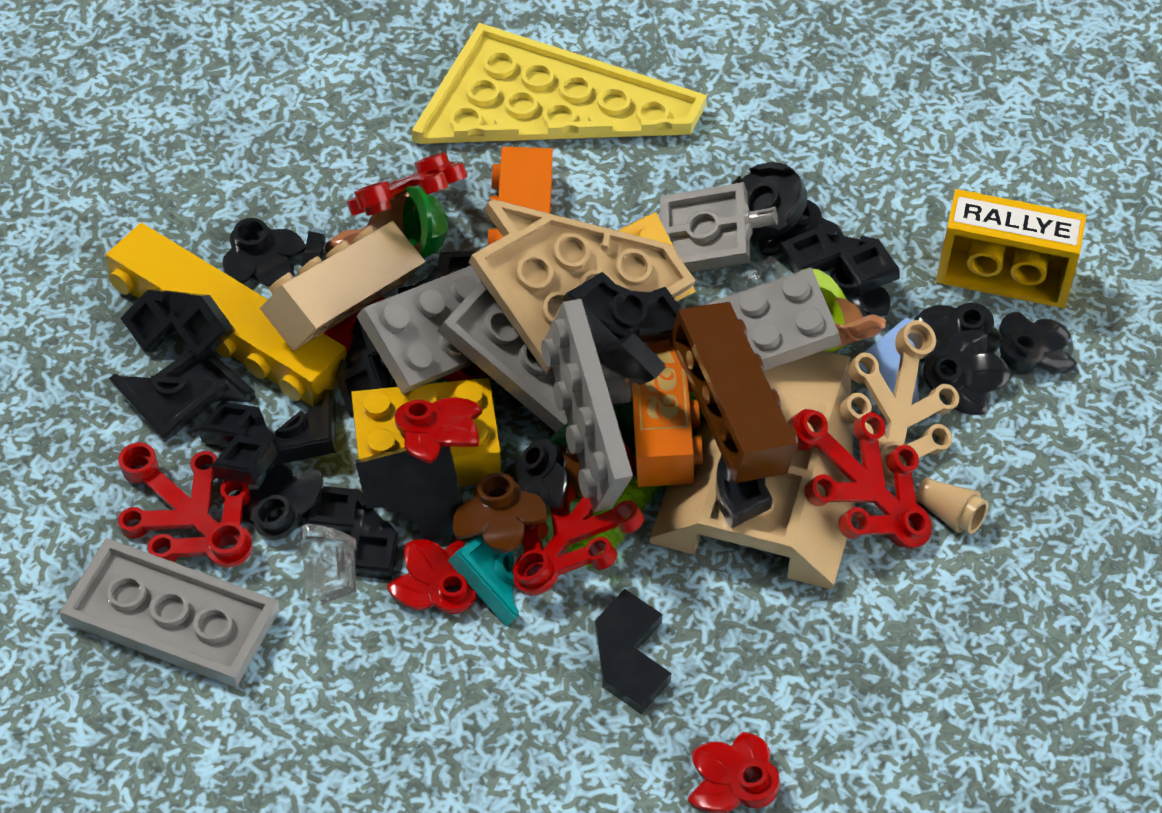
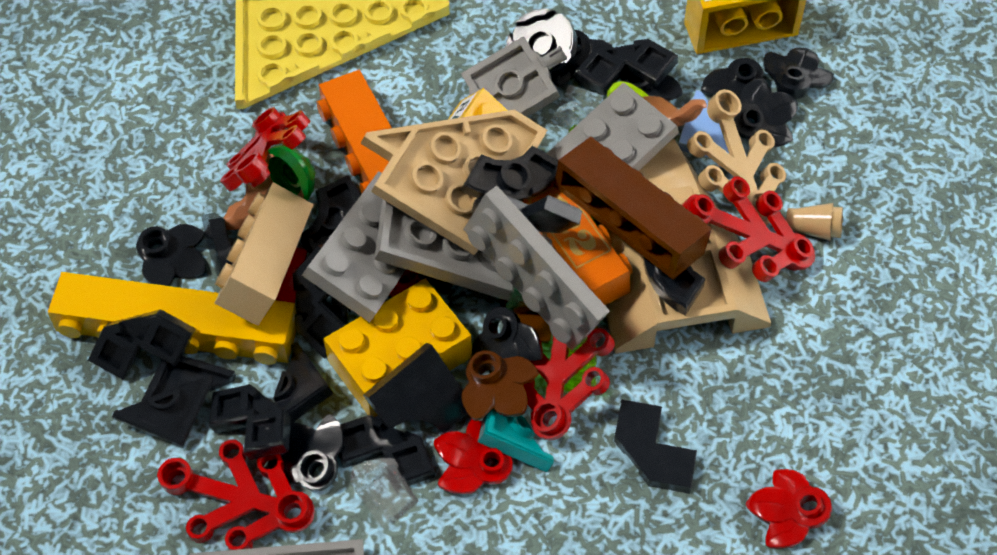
camera: 25 degrees left, 5 degrees up
(436, 425) = (417, 337): red plate -> none

